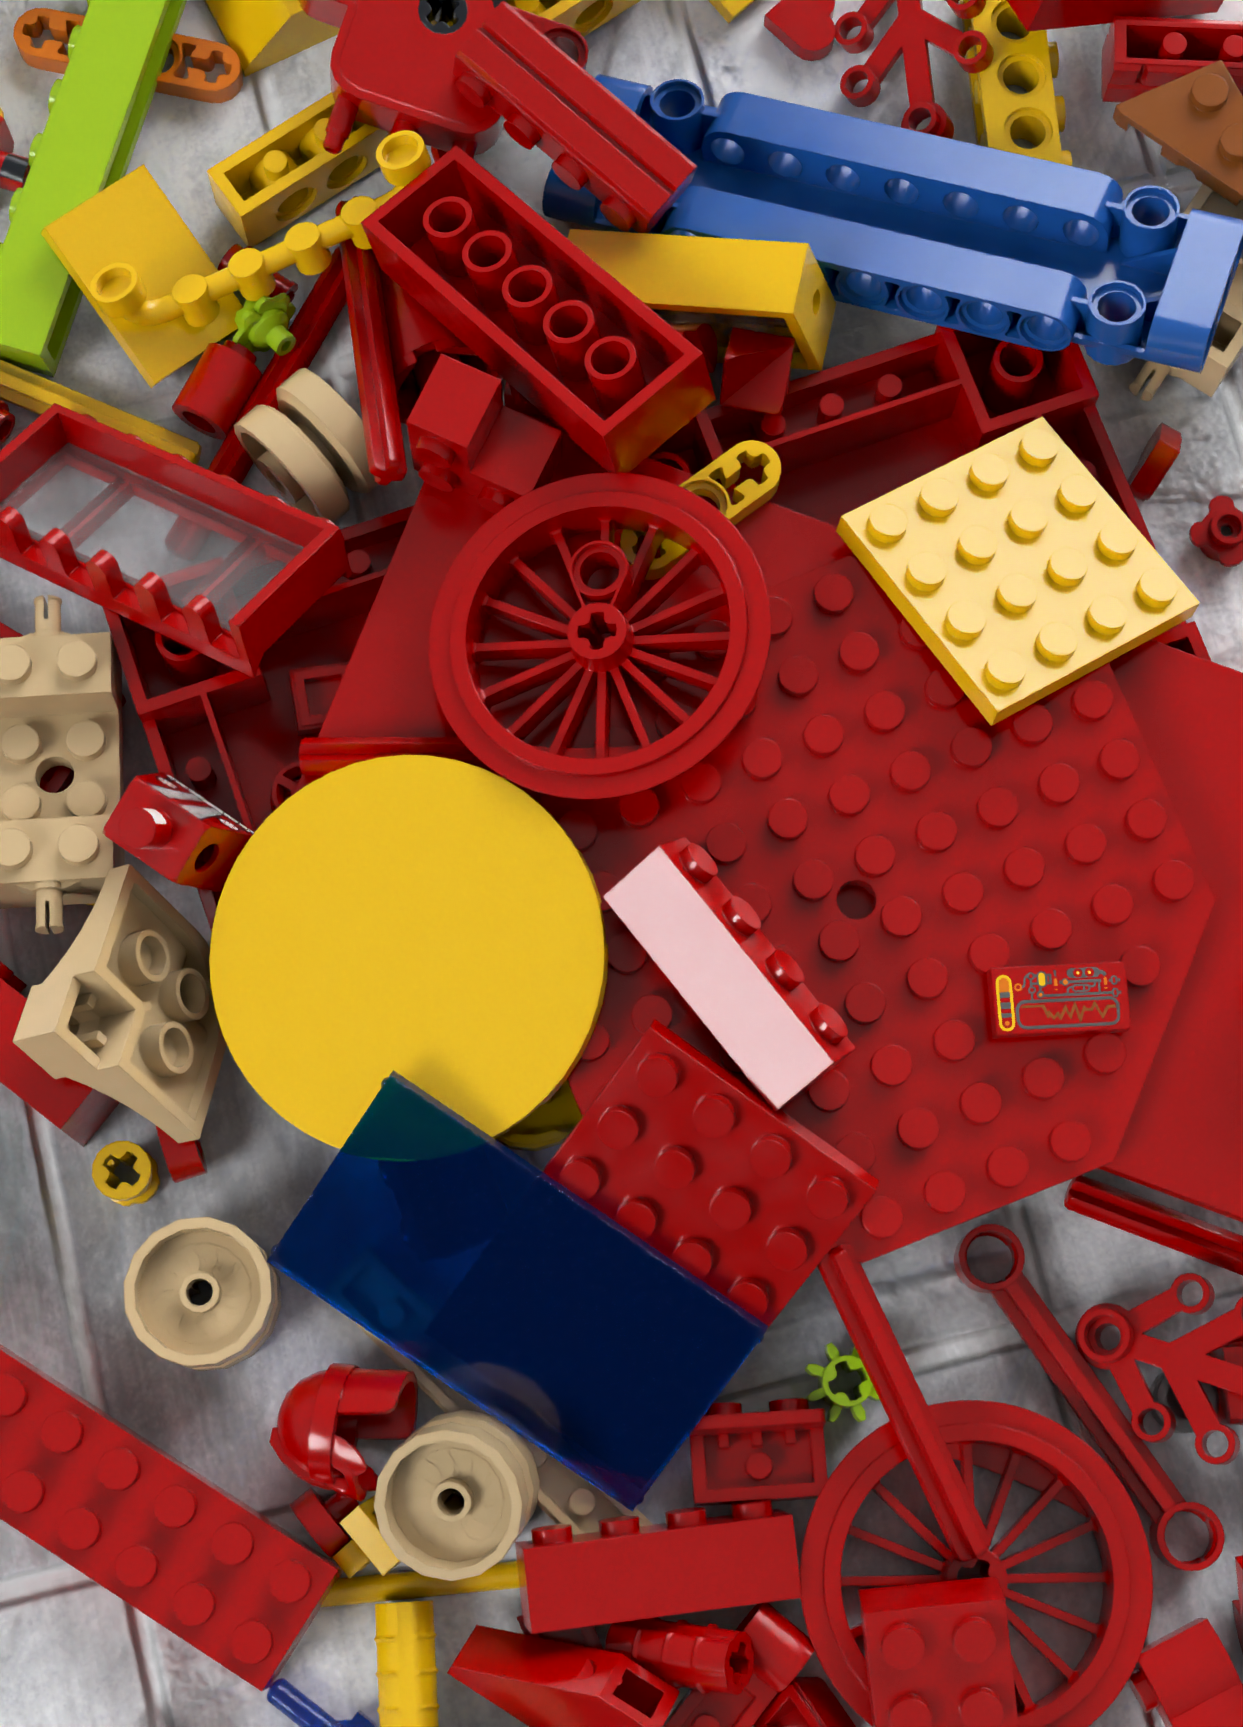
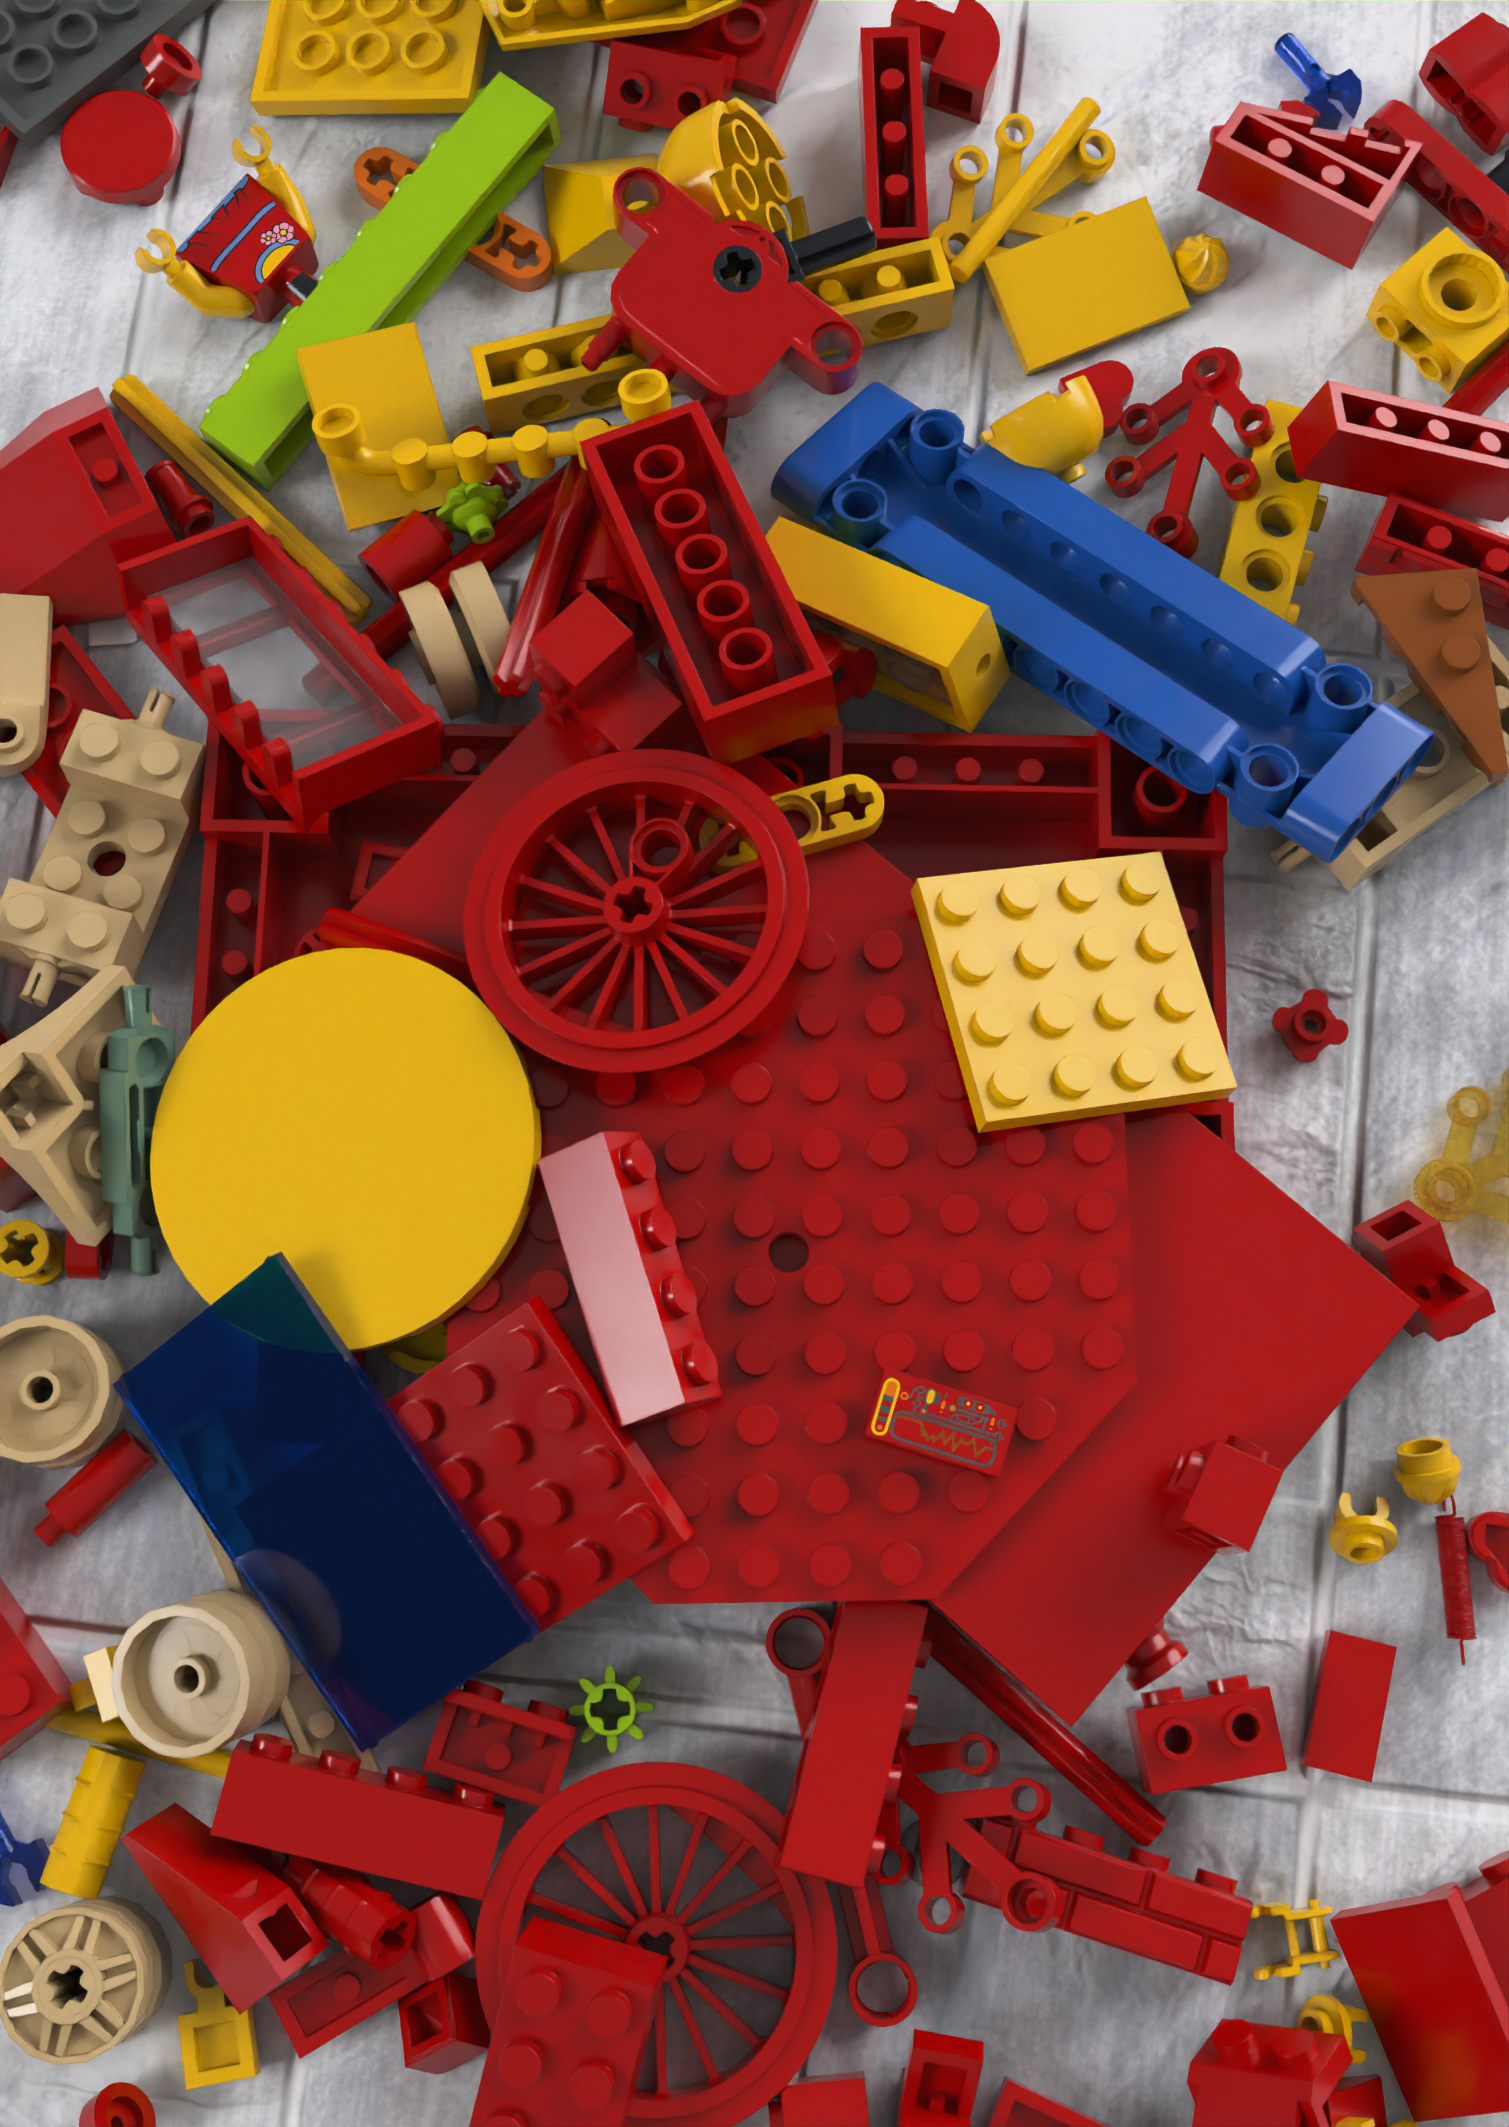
camera: 25 degrees right, 0 degrees up
(171, 826) = (181, 950): red torso -> none
(186, 1003) = (129, 1097): none -> sand green piece
(279, 1366) = (95, 1488): none -> red cylinder
(324, 1518) = (71, 1640): red tile -> none
(331, 1412) = (118, 1551): red helmet -> none
(572, 120) = (816, 412): red brick -> none
(757, 371) = (902, 712): red slope -> none
(783, 65) = (1052, 431): none -> yellow cylinder
(904, 1403) = (646, 1754): red axle -> none
(1080, 1322) = (852, 1740): none -> red brick
(1155, 461) = (1265, 934): red tile -> none

